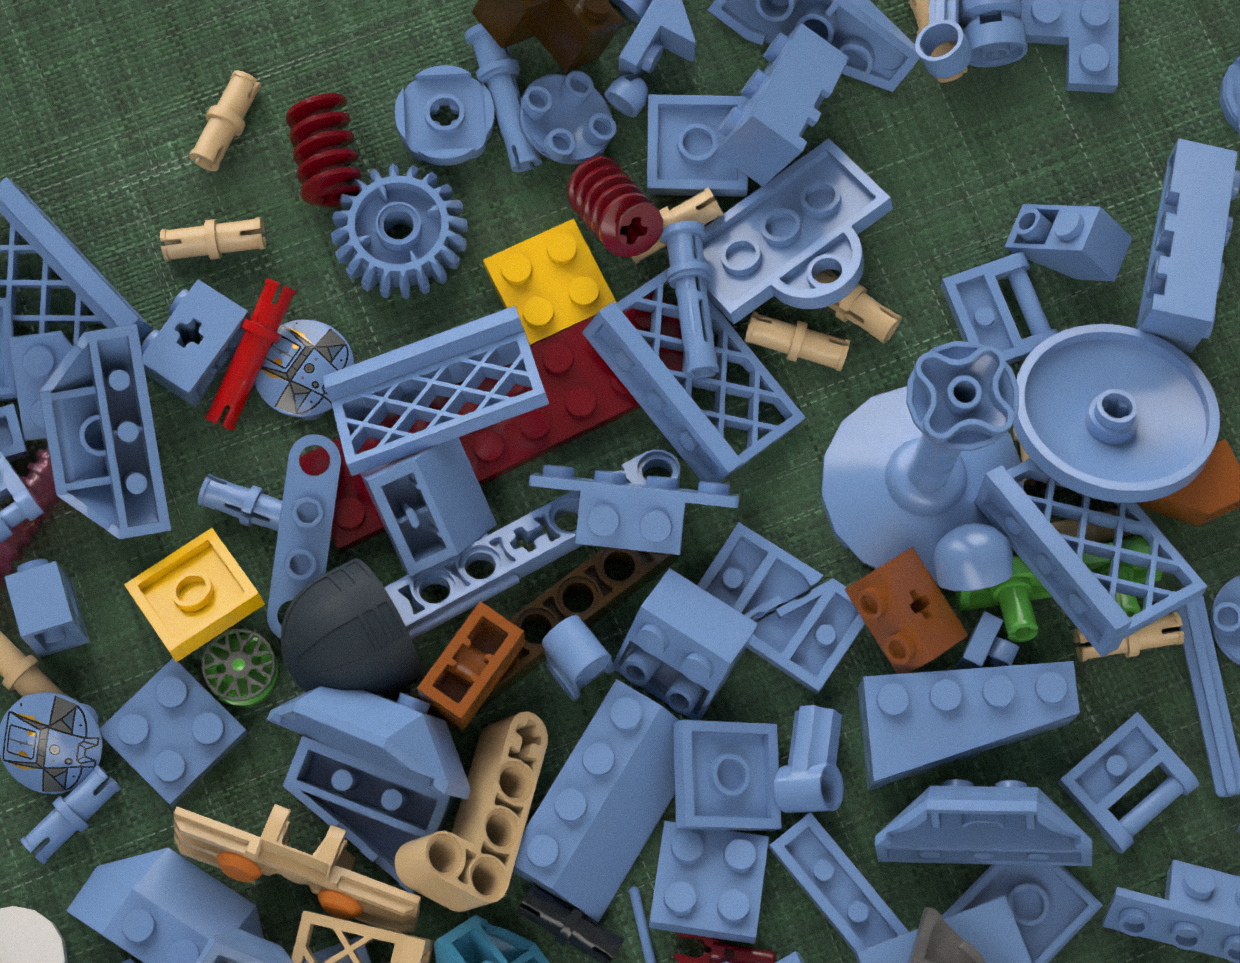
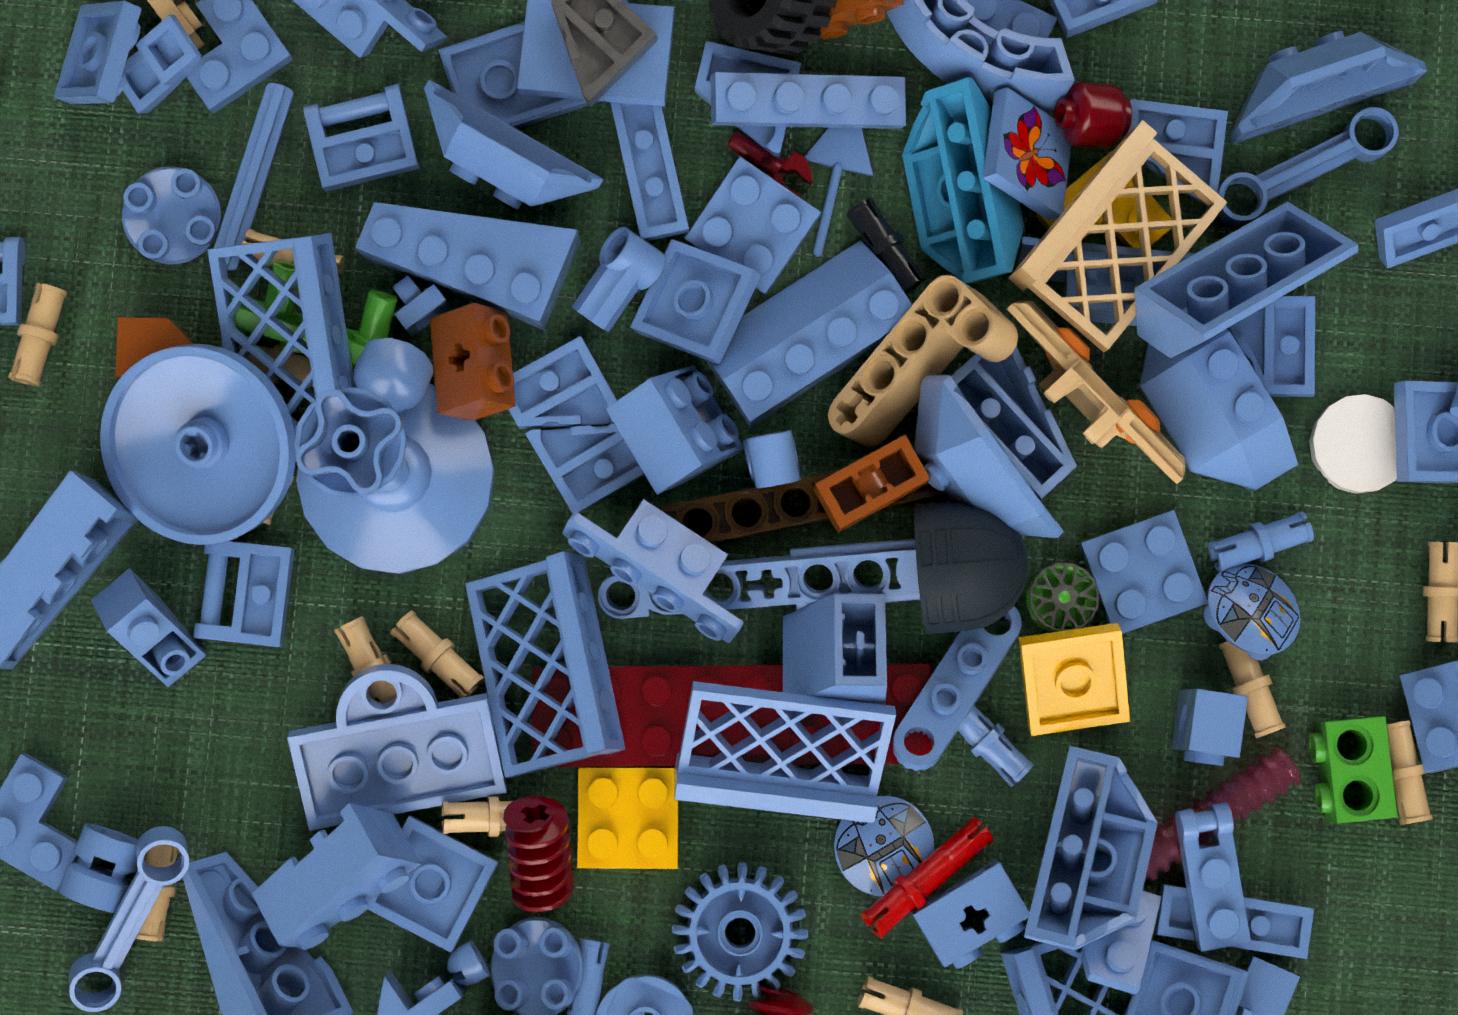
camera: 150 degrees left, 10 degrees up
(689, 277) = (505, 751): medium blue pin -> none

